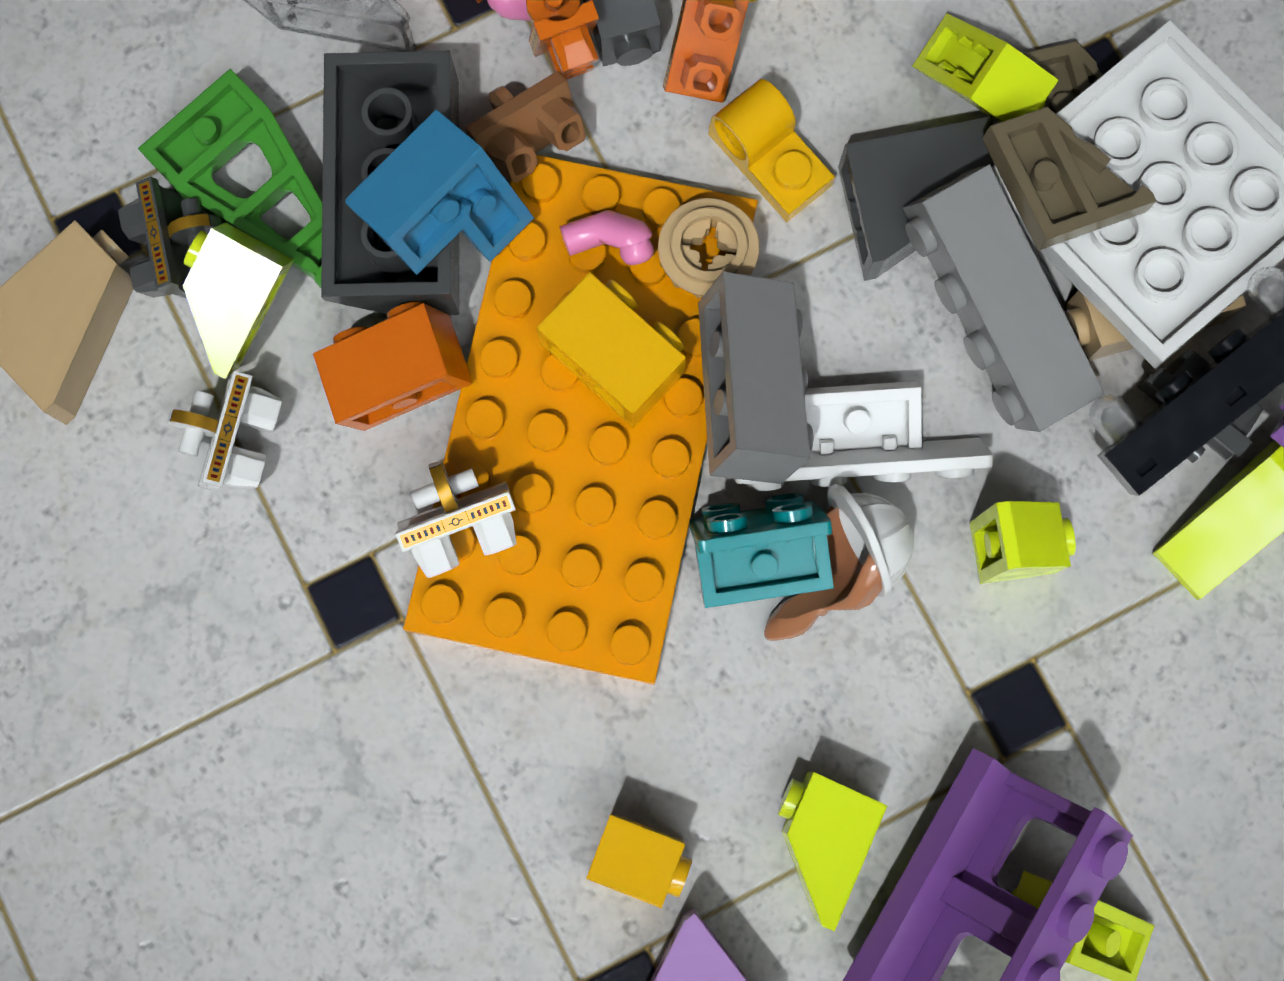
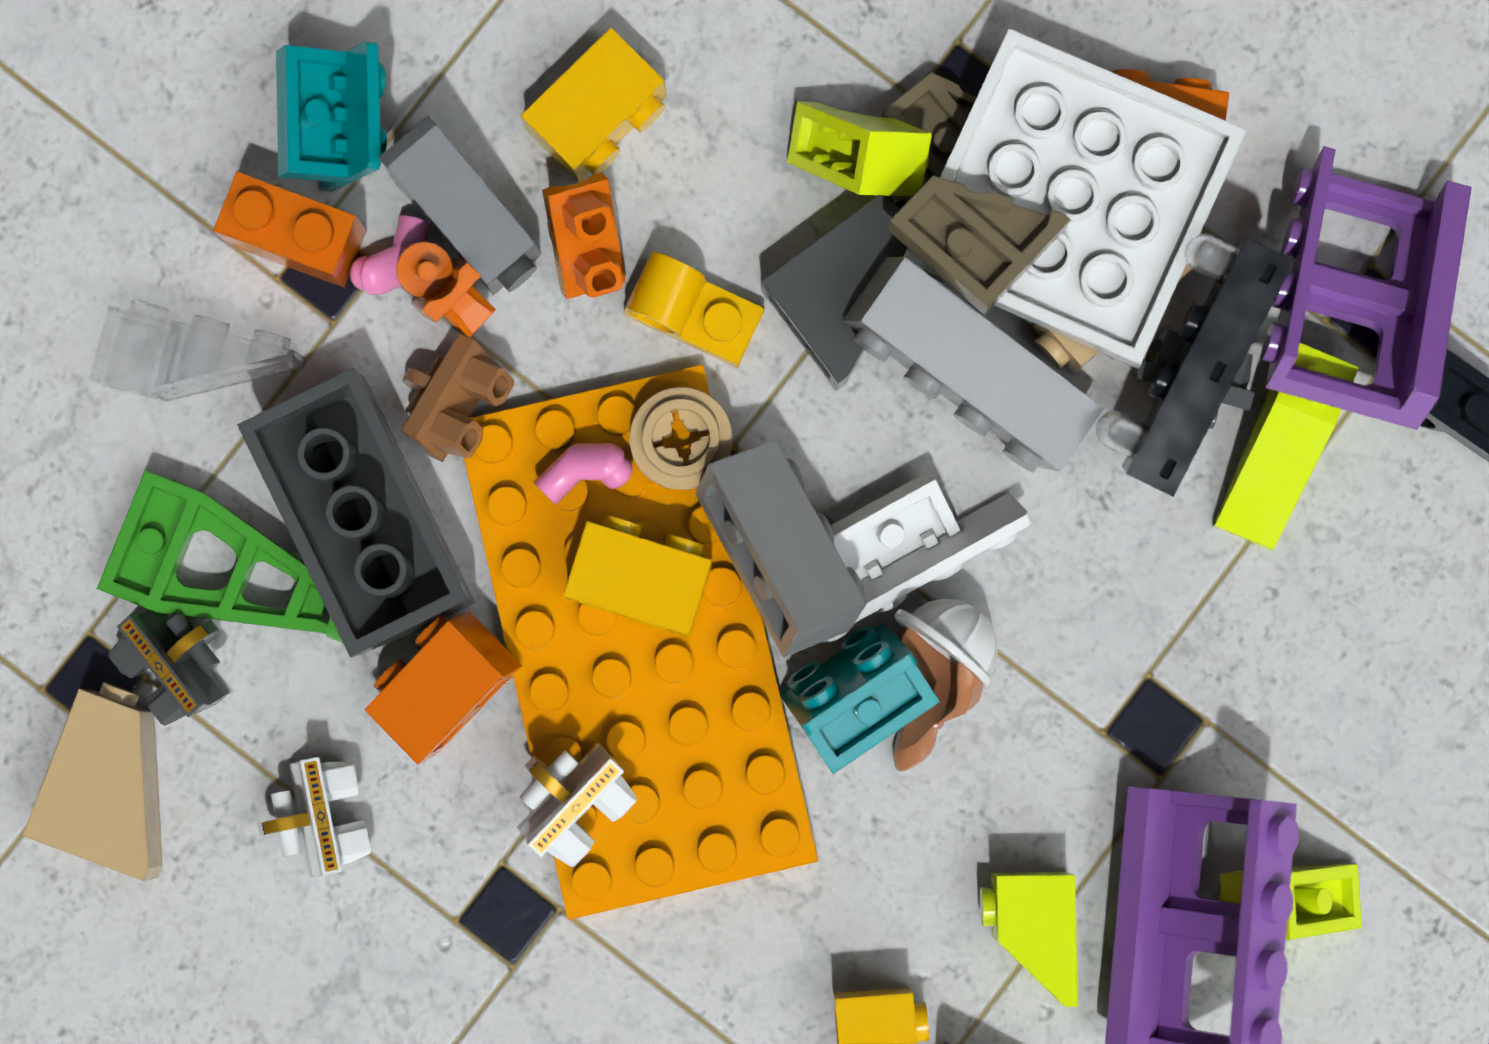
camera: 25 degrees left, 5 degrees up
(231, 291) = (260, 685): slope -> none
(436, 189) = (408, 515): dark azure panel -> none
(1021, 541) = (1091, 578): neon yellow slope -> none

